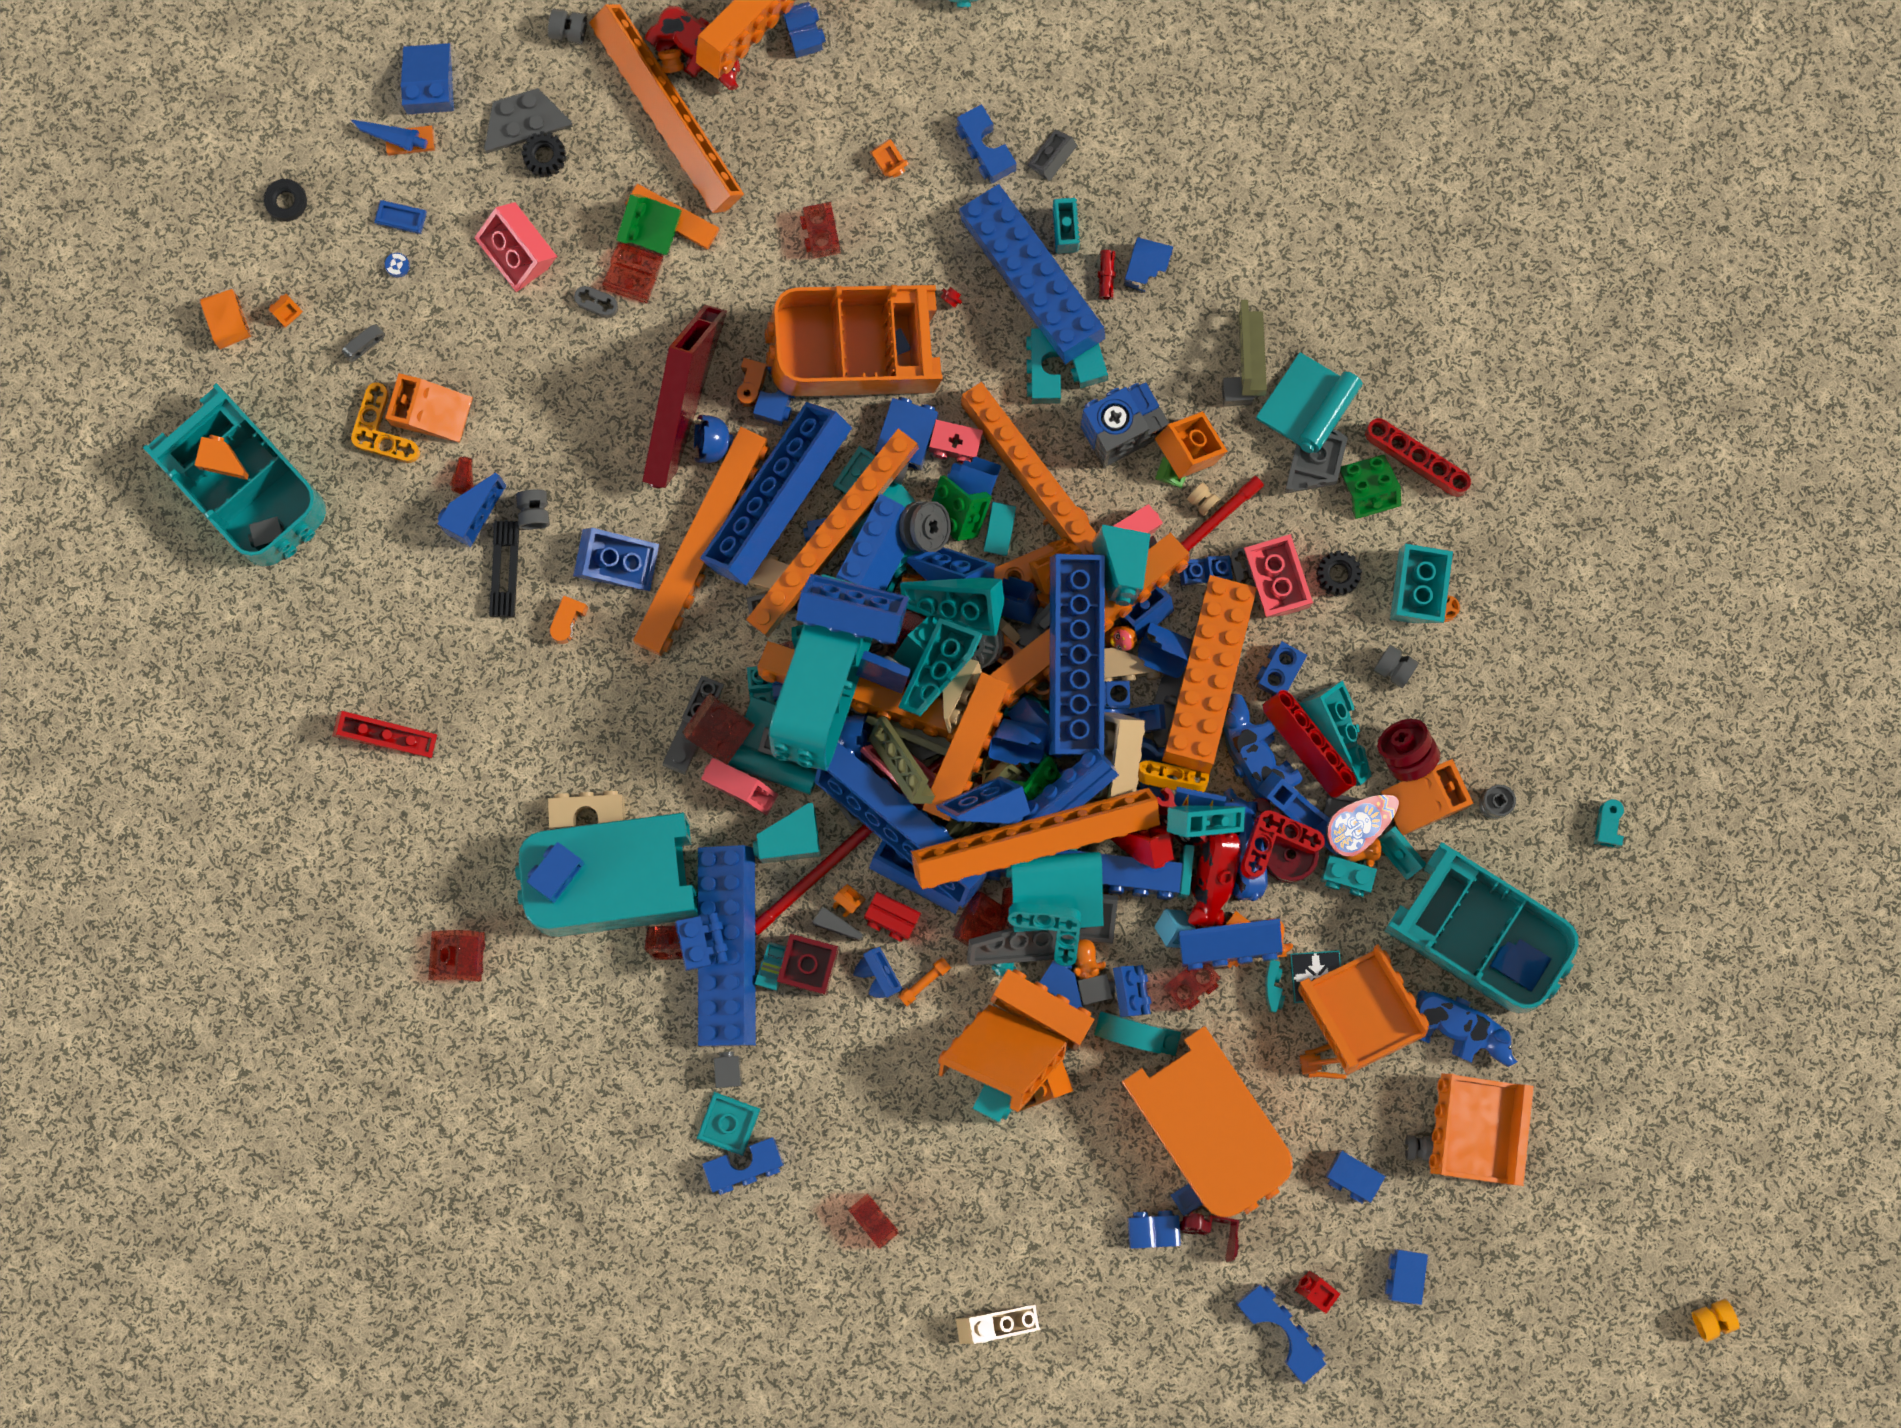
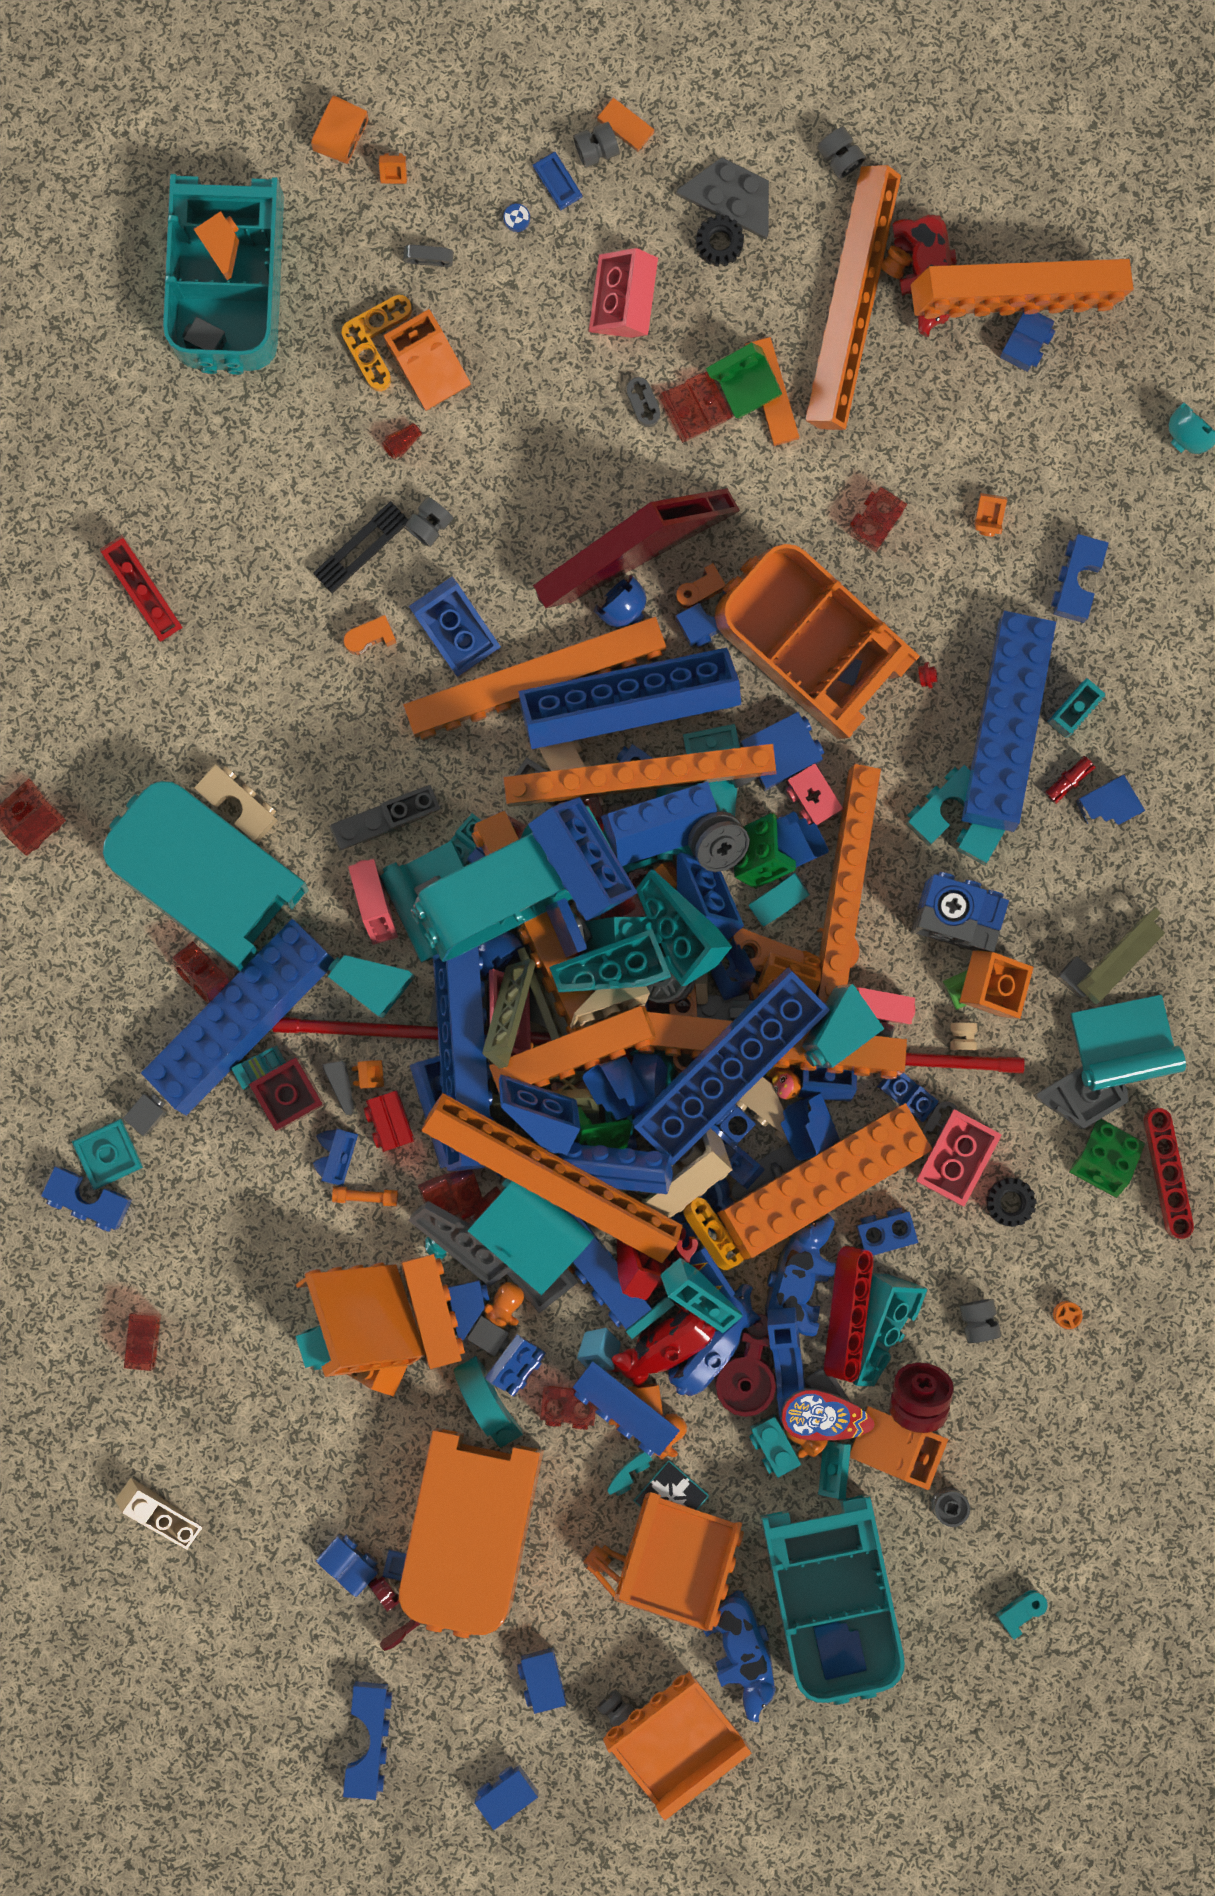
camera: 45 degrees right, 5 degrees up
(281, 186) = (474, 63): black tyre -> none
(398, 136) = (619, 114): blue bar -> none
(404, 168) = (596, 144): none -> dark grey wheel
(427, 79) = (688, 87): blue slope -> none
(469, 512) = (375, 476): blue slope -> none
(554, 871) = (157, 830): blue brick -> none
(693, 942) = (212, 991): blue plate -> none
(718, 728) = (398, 841): clear red brick -> none
(1052, 154) = (1125, 639): dark grey slope -> none
(1062, 926) = (510, 1258): teal beam -> none
(1269, 836) = (740, 1356): red beam -> none
(1317, 1291) = (426, 1737): red bracket -> none
(1421, 584) = (1066, 1277): teal slope -> none

